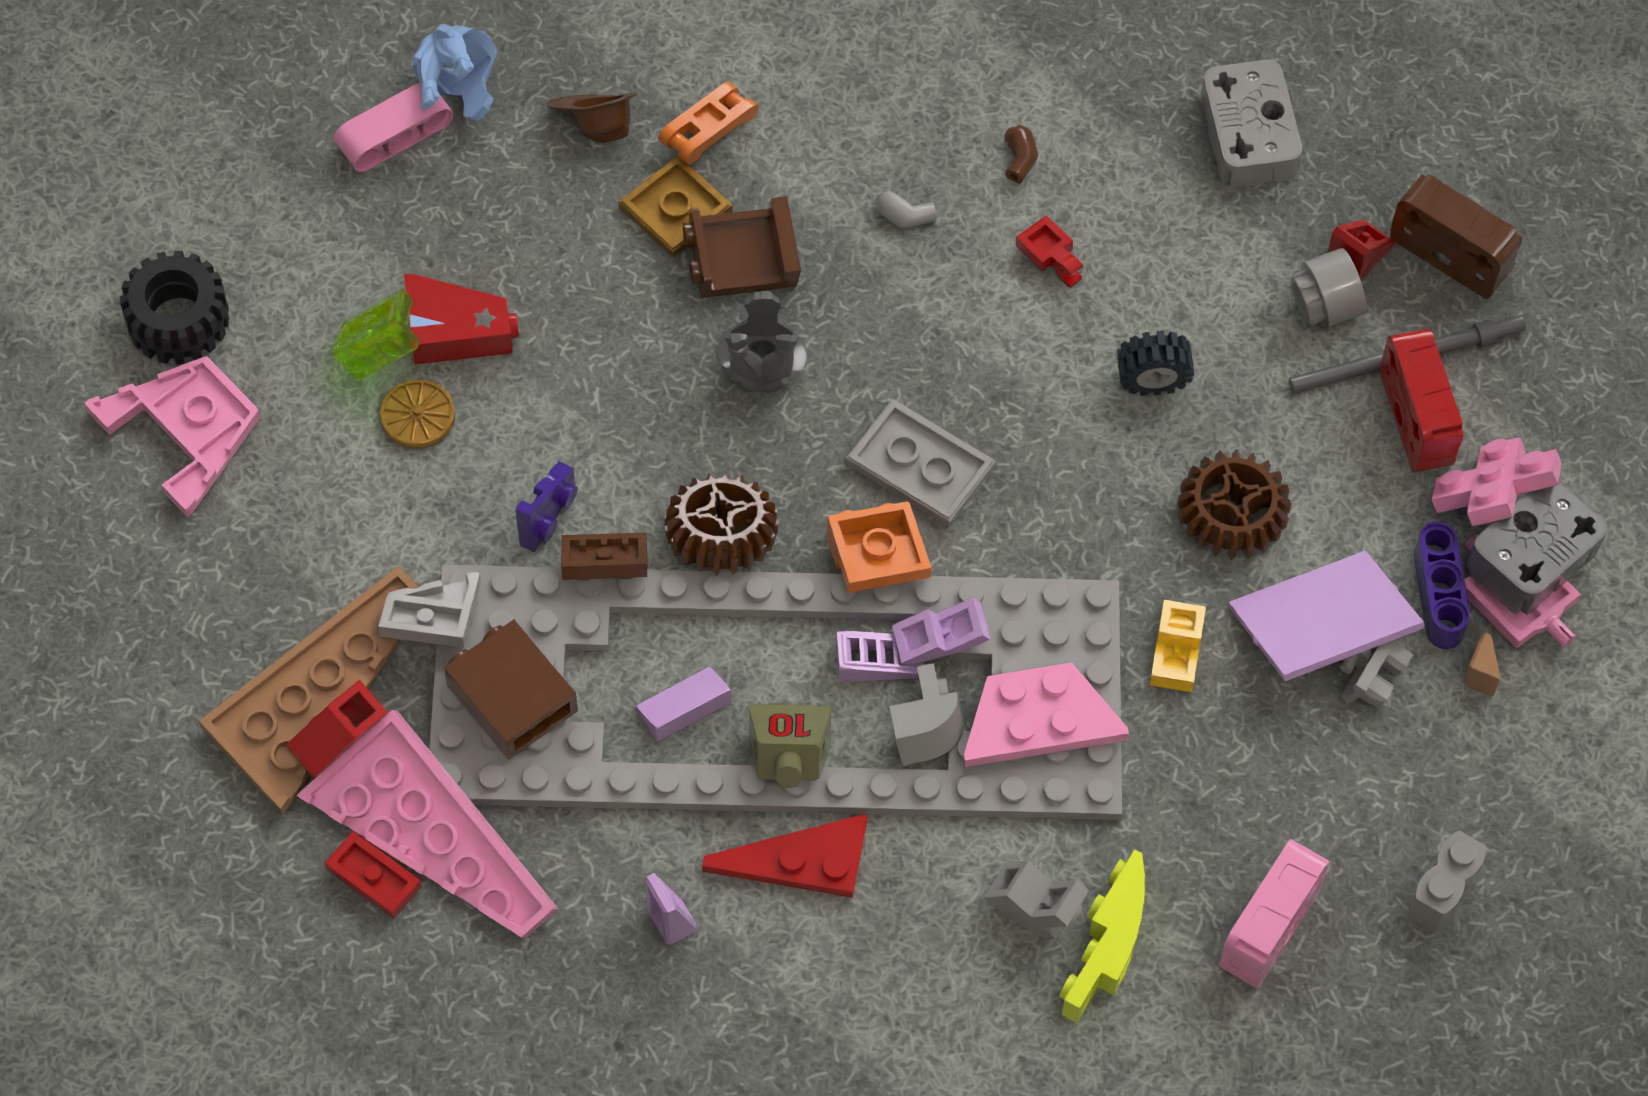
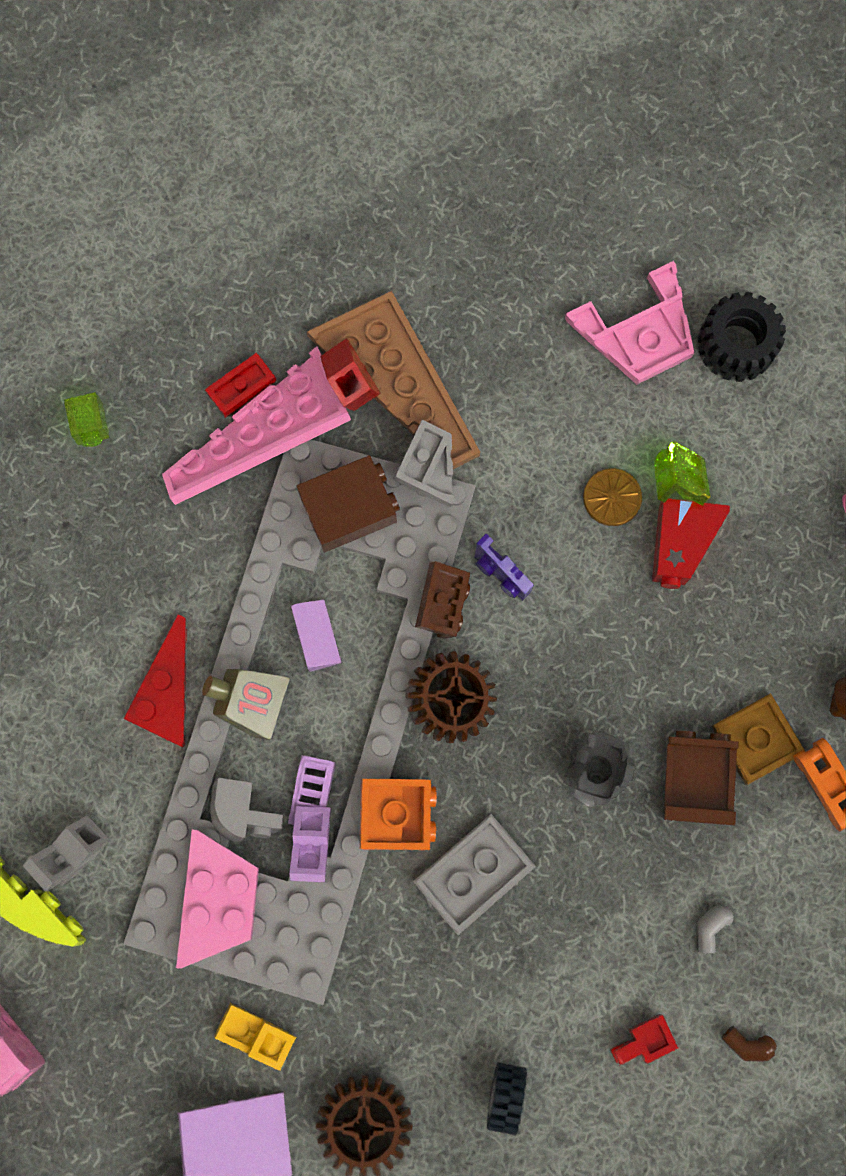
camera: 105 degrees right, 15 degrees up
(470, 1049) = (87, 419): none -> clear neon green brick
(668, 911) = (142, 578): lavender slope -> none

